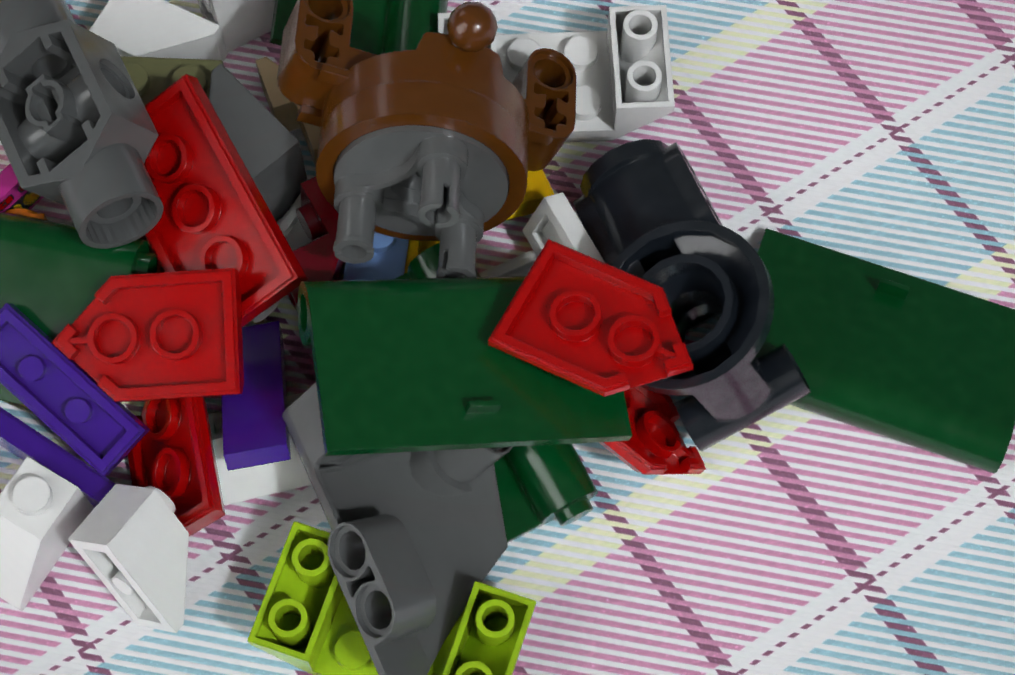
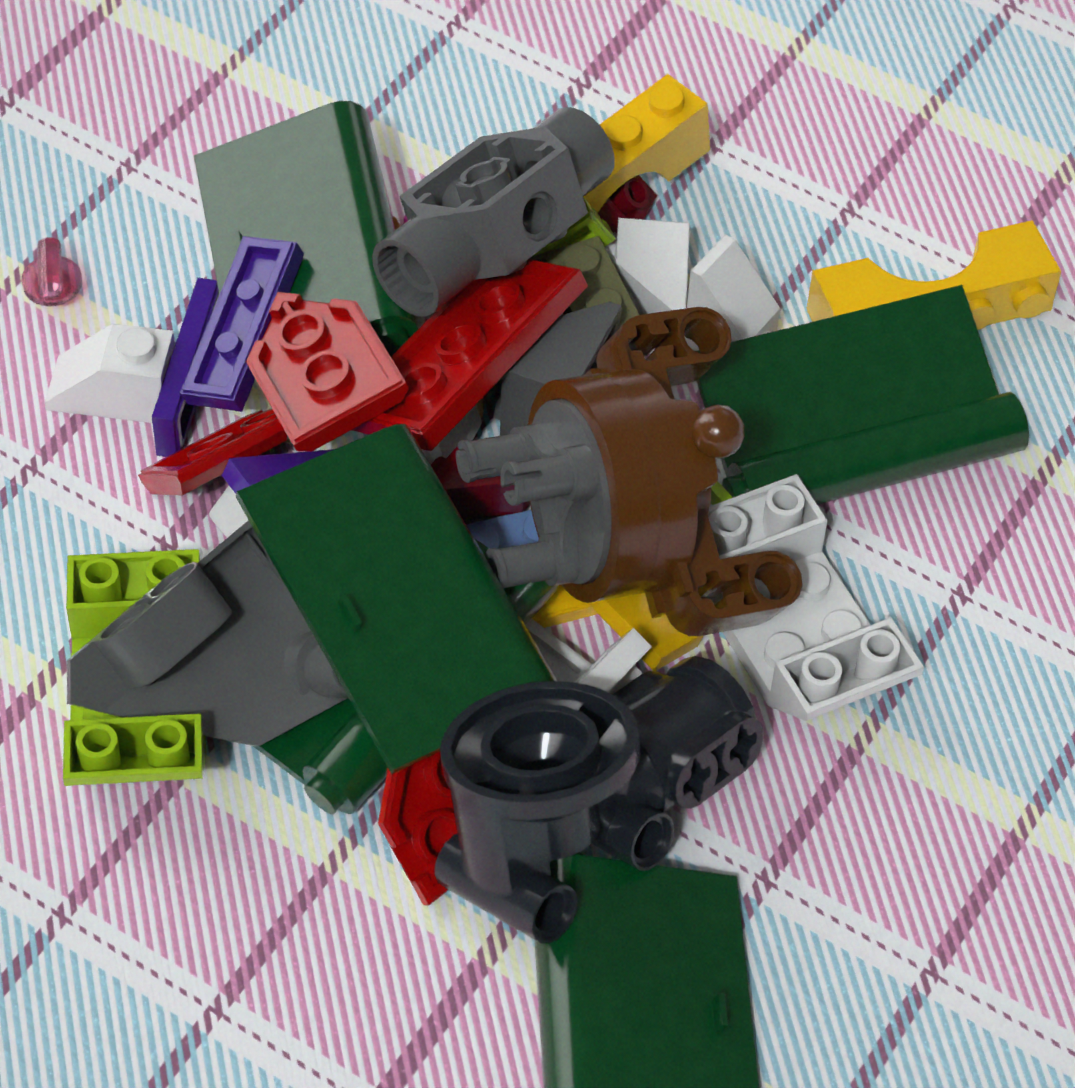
camera: 65 degrees right, 15 degrees down
(138, 554) = (121, 446): white slope -> none
(591, 324) = (477, 669): red tile -> none

